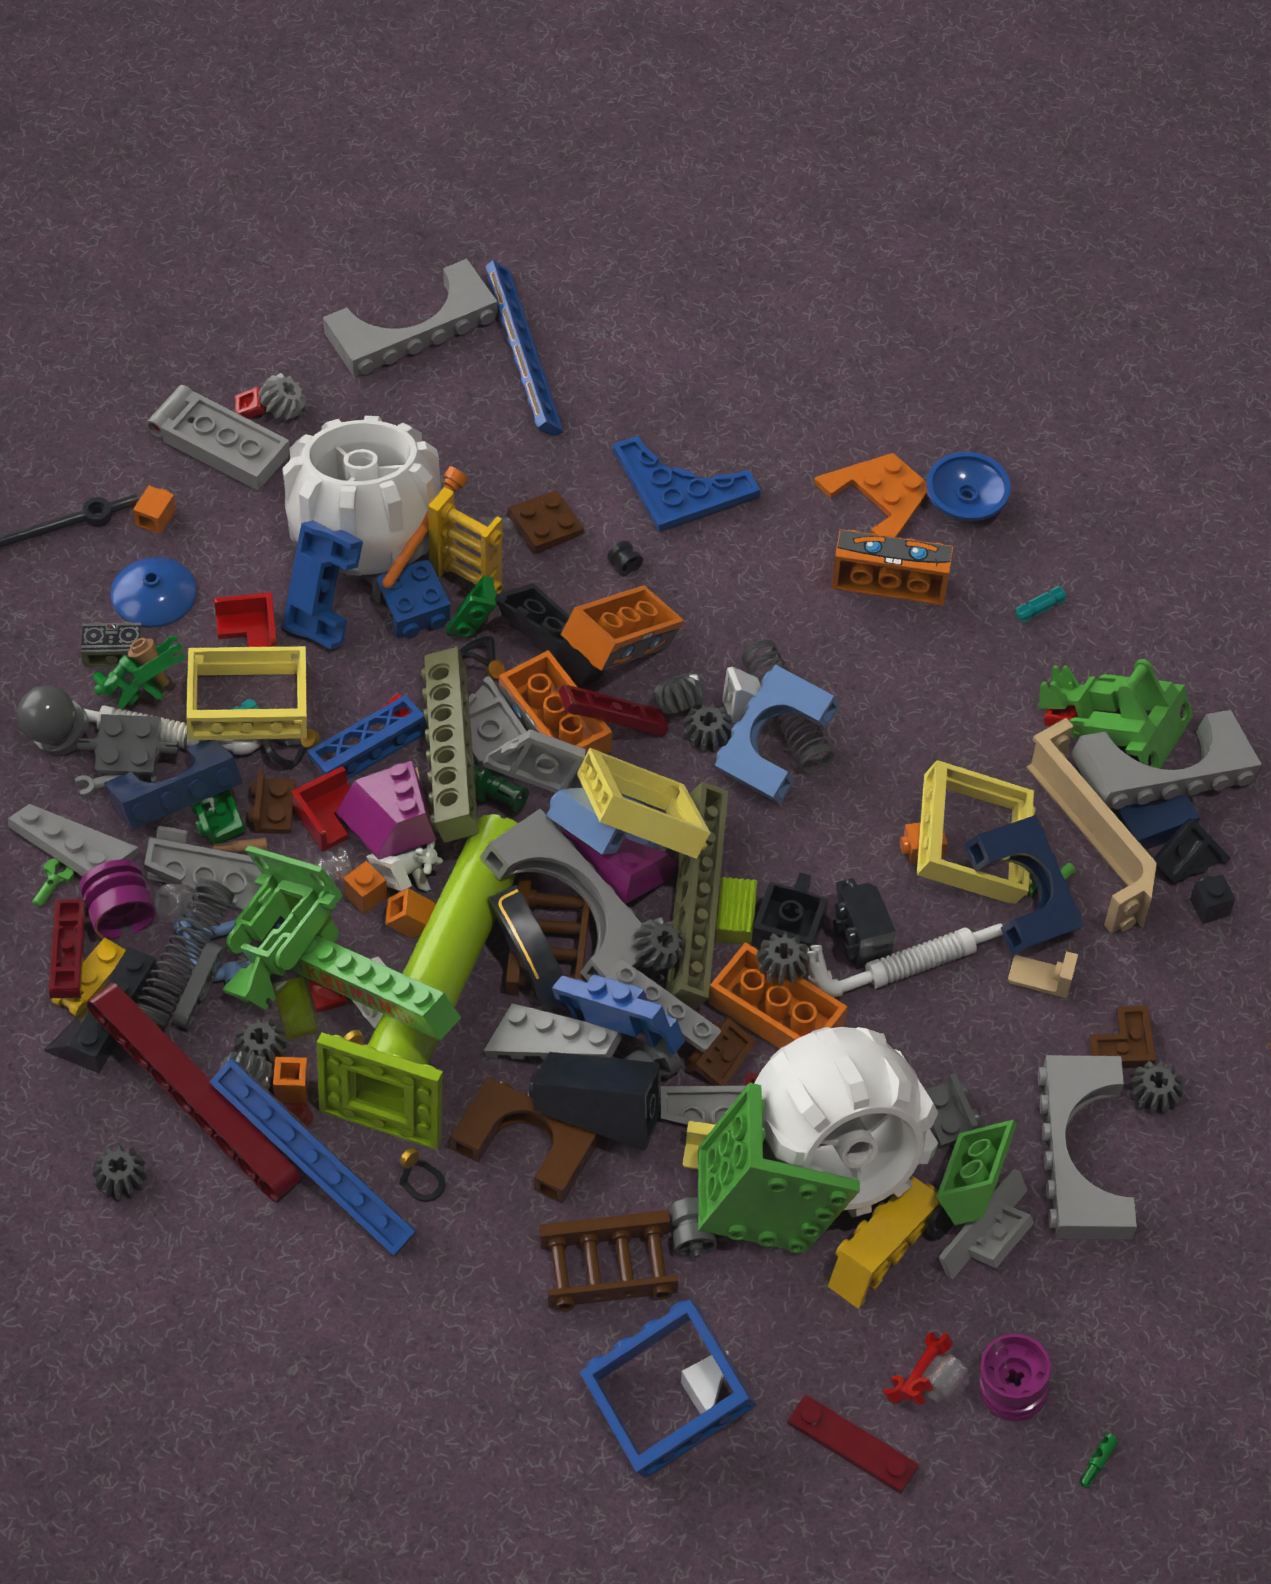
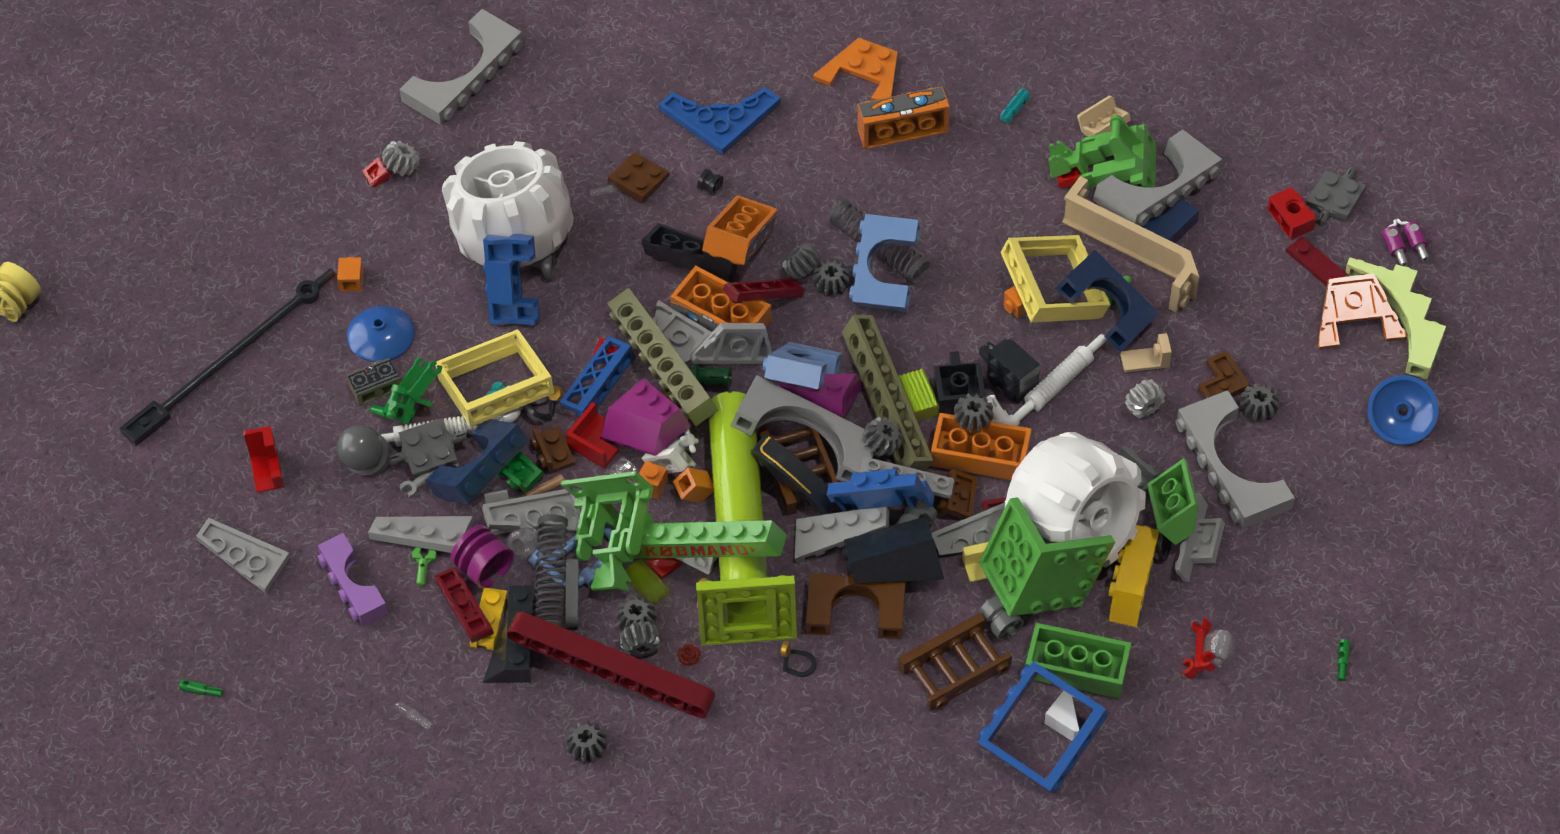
camera: 20 degrees left, 0 degrees up
(143, 651) = (406, 378): medium nougat cone -> none
(219, 437) = (368, 204): light grey hinge -> none
(247, 617) = (464, 324): red panel -> none
(291, 1079) = (673, 630): orange brick -> none
(313, 1156) = (719, 674): blue plate -> none
(416, 600) = (578, 265): blue bracket -> none
(443, 547) = (581, 219): yellow fence -> none
(453, 481) = (574, 169): orange piece -> none
(474, 609) = (625, 256): green bracket -> none
(494, 667) = (658, 293): black piece -> none
(524, 349) = (560, 63): blue plate -> none
(609, 777) = (823, 345): light yellow window -> none
(738, 691) = (843, 245): white slope -> none
(760, 1321) = (1080, 659): none -> bright green brick
(853, 1444) = (1179, 715): dark red plate -> none
(970, 476) = (929, 34): blue dish -> none
(1012, 1025) = (1145, 398): none -> light grey gear
(1024, 1362) = (1271, 618): magenta wheel -> none
(1125, 653) = (1097, 117): none -> tan bracket
(1189, 853) = (1203, 236): black wing -> none
(1212, 898) = (1233, 262): black brick -> none

